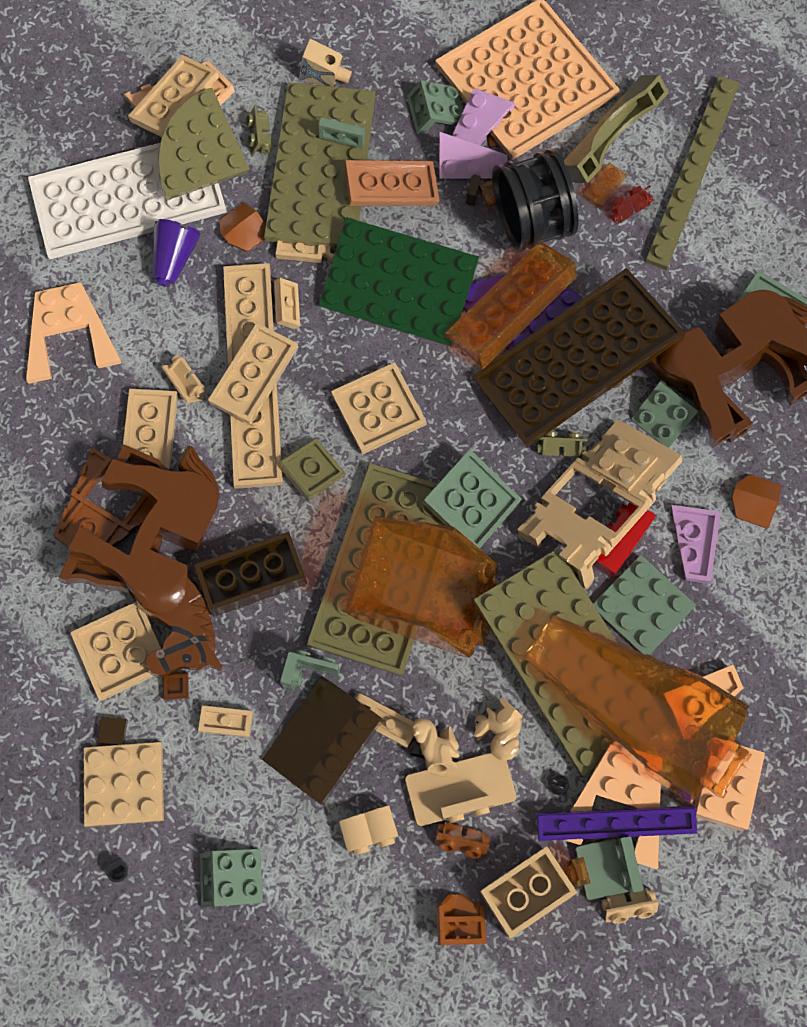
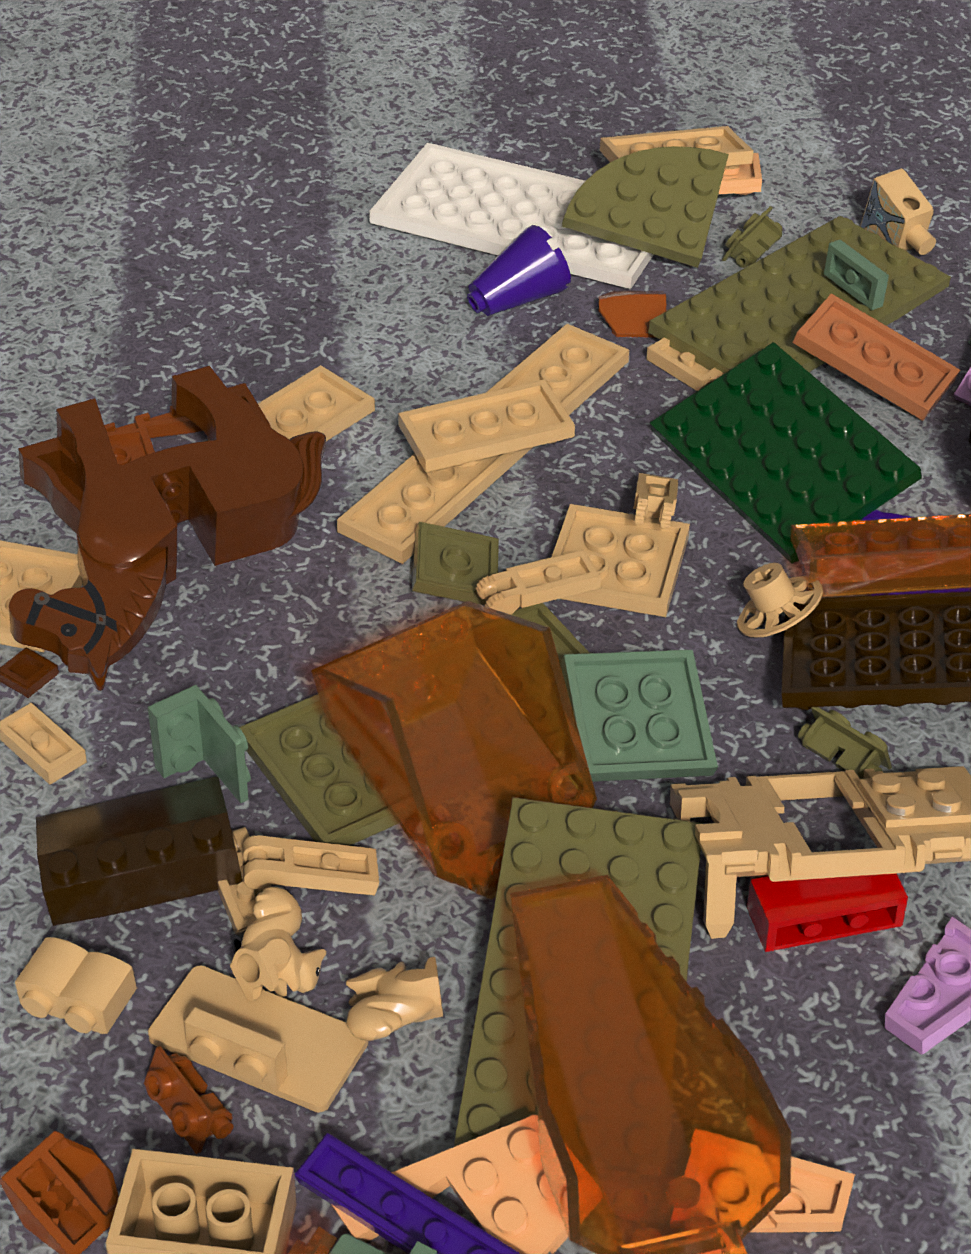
camera: 40 degrees right, 30 degrees down
(63, 311) = (316, 266): light nougat wing -> none
(188, 386) = (395, 393): tan hinge -> none
(250, 574) = (252, 610): dark brown brick -> none
(287, 303) = (609, 397): tan plate -> none
(367, 455) = (539, 582): none -> tan hinge
(369, 359) = (655, 499): none -> tan hinge
(408, 691) = (309, 865): none -> tan plate
(472, 383) = (773, 594): none -> tan wheel
(558, 789) = (400, 1143): black hinge -> none
(643, 606) = (787, 1009): sand green plate -> none

